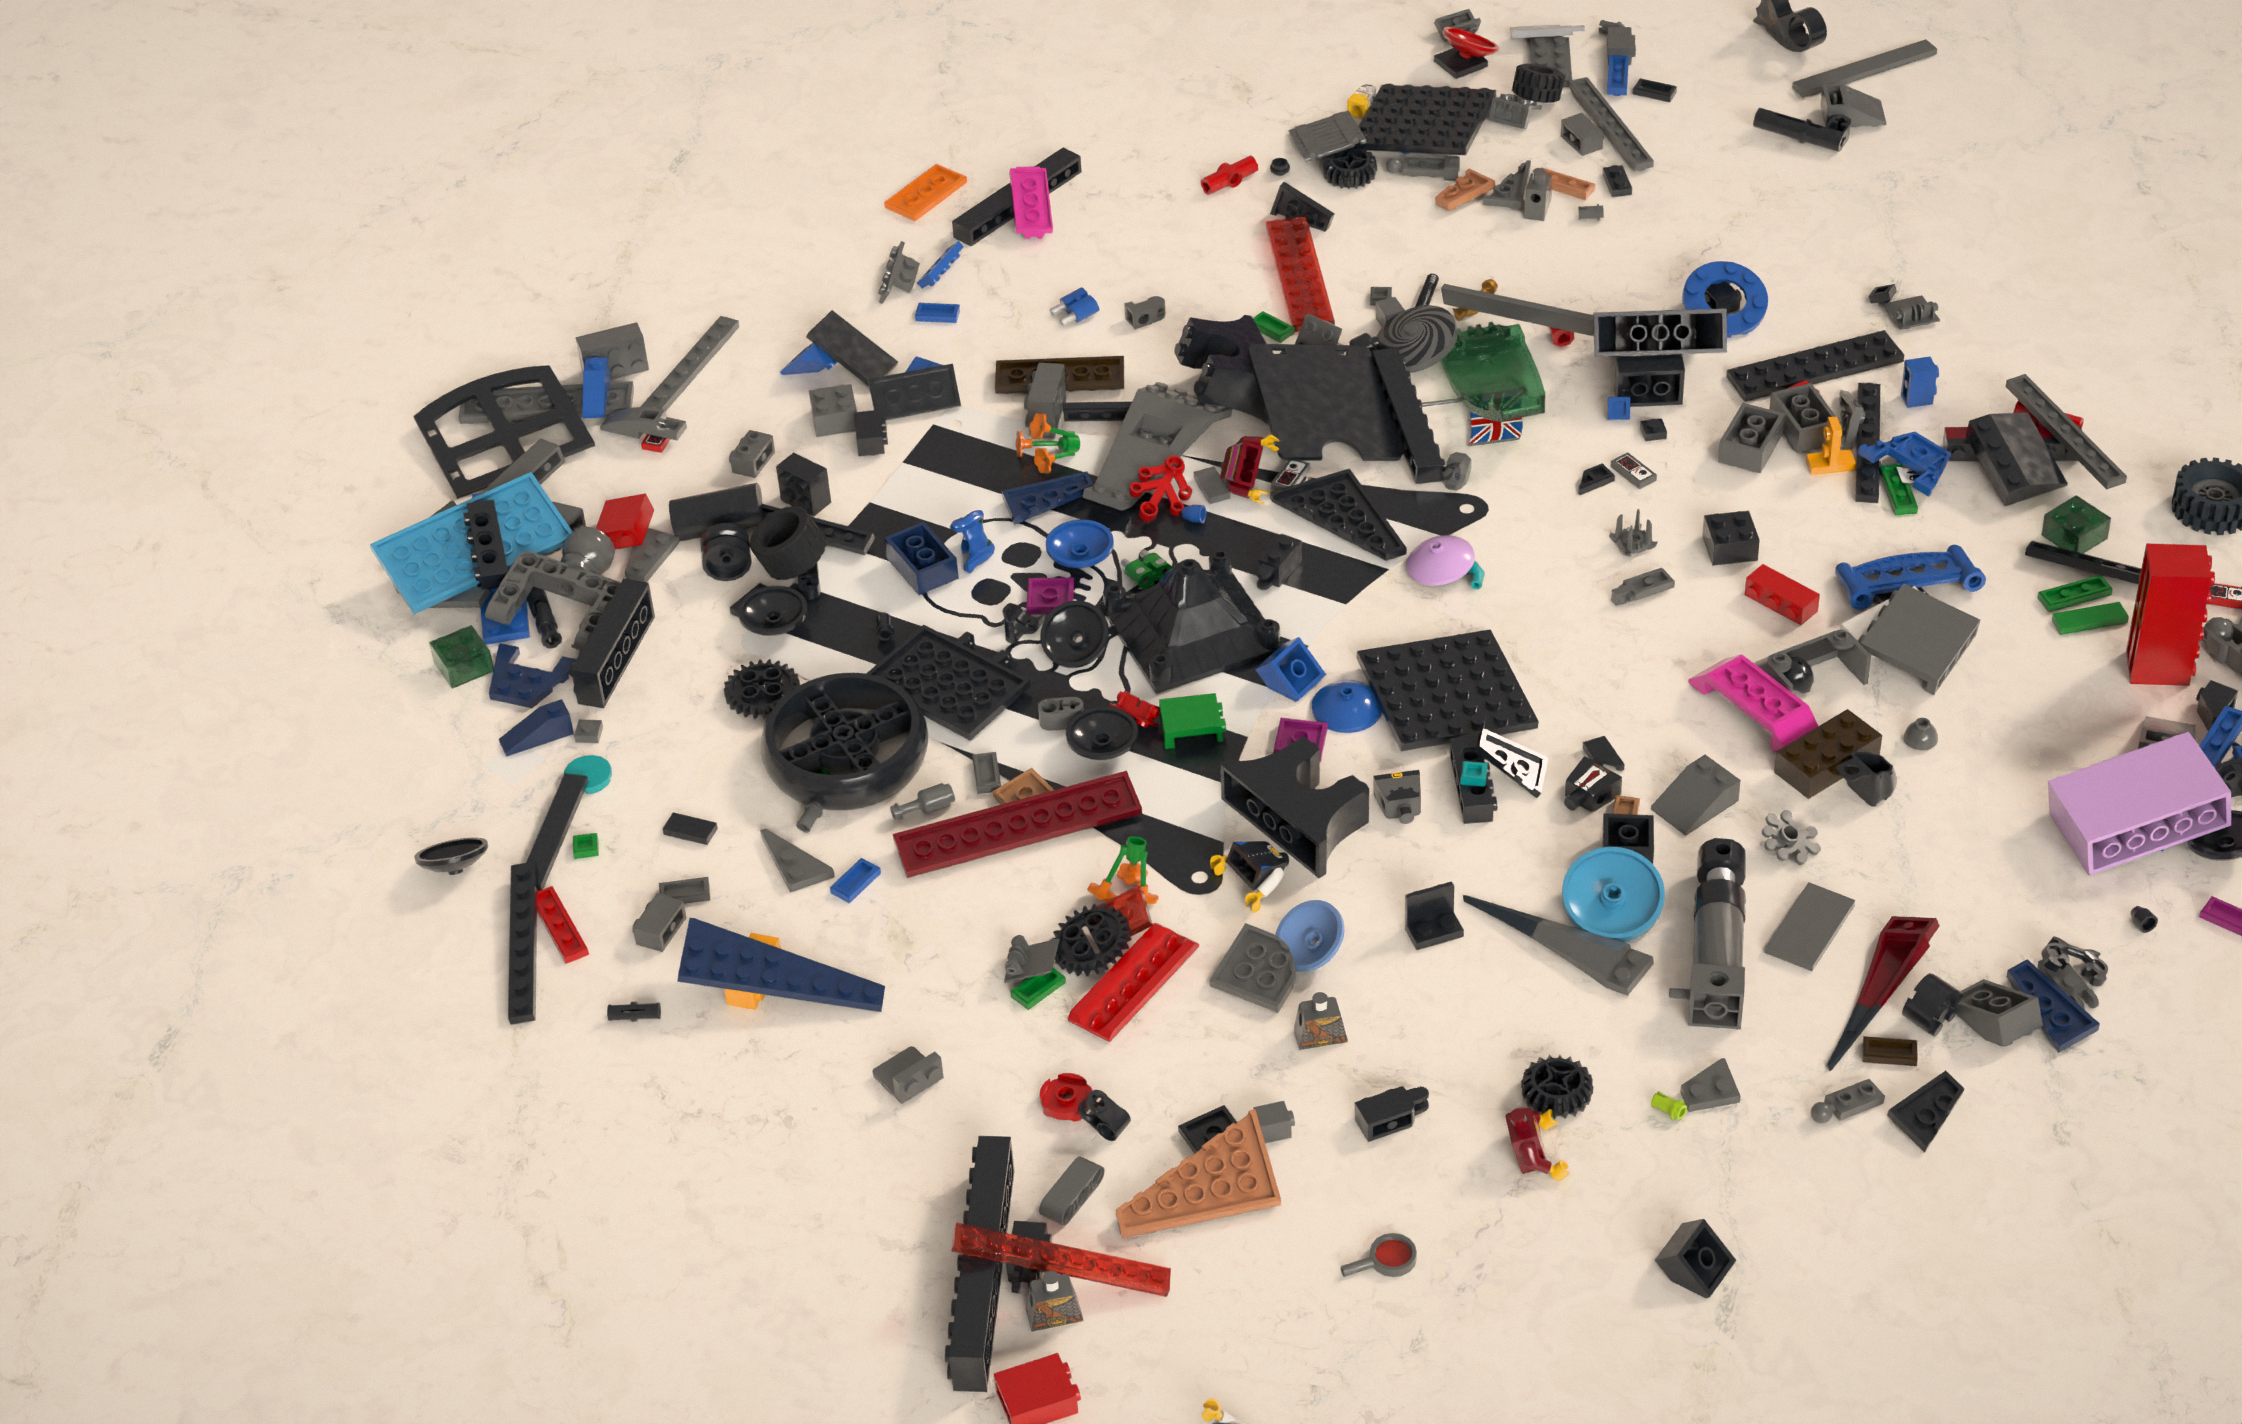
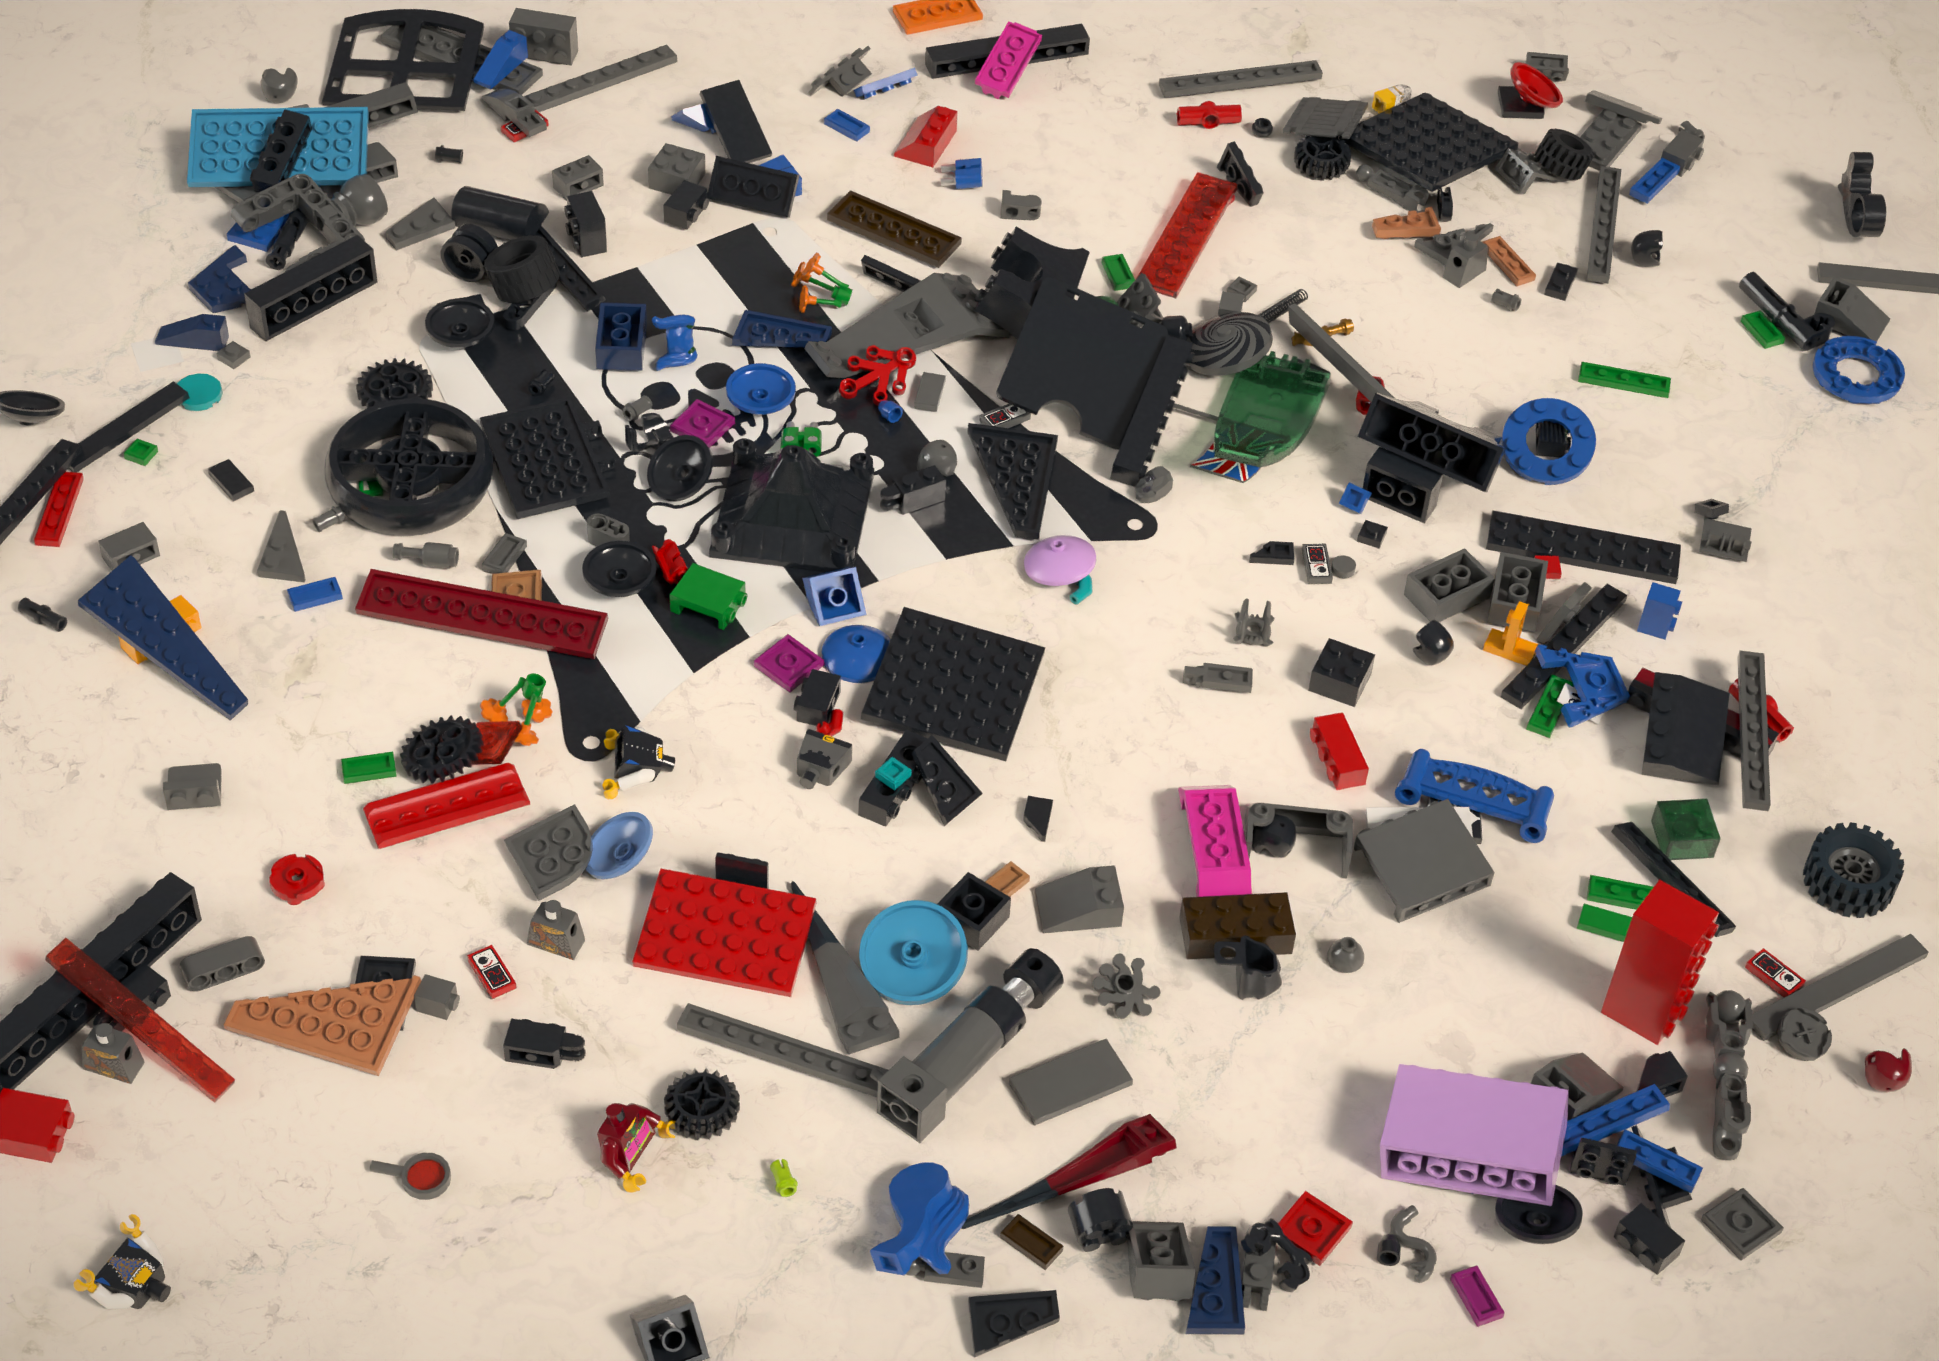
camera: 25 degrees right, 5 degrees up
(407, 498) = (278, 86): none -> dark grey helmet
(461, 656) = (193, 241): clear green brick -> none
(617, 486) = (448, 154): none -> black pin
(626, 520) = (419, 188): red brick -> none
(687, 890) = (177, 532): dark grey tile -> none
(984, 611) = (633, 410): none -> dark grey pin
(1016, 291) = (928, 136): none -> red slope
(1029, 960) = (376, 737): dark grey hinge -> none
(1046, 395) = (850, 242): dark grey brick -> none
(1105, 1115) = (307, 916): black piece -> none
(1226, 137) = (1240, 78): none -> dark grey plate
(1242, 465) = (960, 386): dark red torso -> none
(1269, 529) = (939, 454): none -> dark grey helmet
(1282, 802) = (710, 709): black piece -> none
(1294, 1082) = (491, 971): none -> tile
(1353, 752) = (818, 697): none -> black brick
(1381, 764) = (834, 726): none -> red arm
(1452, 957) = (725, 932): none -> red plate
(1478, 161) = (1444, 204): none -> black piece
(1577, 1017) = (779, 1048): none -> dark grey plate
(1582, 134) = (1567, 221): dark grey brick -> none
(1591, 786) = (993, 840): black torso -> none
(1654, 90) = (1679, 211): black tile -> none
(1656, 462) = (1343, 566): none -> dark grey tile
(1660, 125) = (1645, 245): none -> black helmet
(1711, 1088) = (838, 1182): dark grey wing -> none
(1731, 231) = (1624, 379): none -> green tile
(1782, 482) = (1434, 642): none -> black helmet
(1796, 149) = (1762, 329): none -> green tile
(1805, 1066) = (929, 1218): none -> blue animal
(1915, 136) = (1886, 361): none -> blue plate
(2080, 928) = (1315, 1227): none -> red plate
(2178, 916) = (1397, 1224): none -> dark grey animal

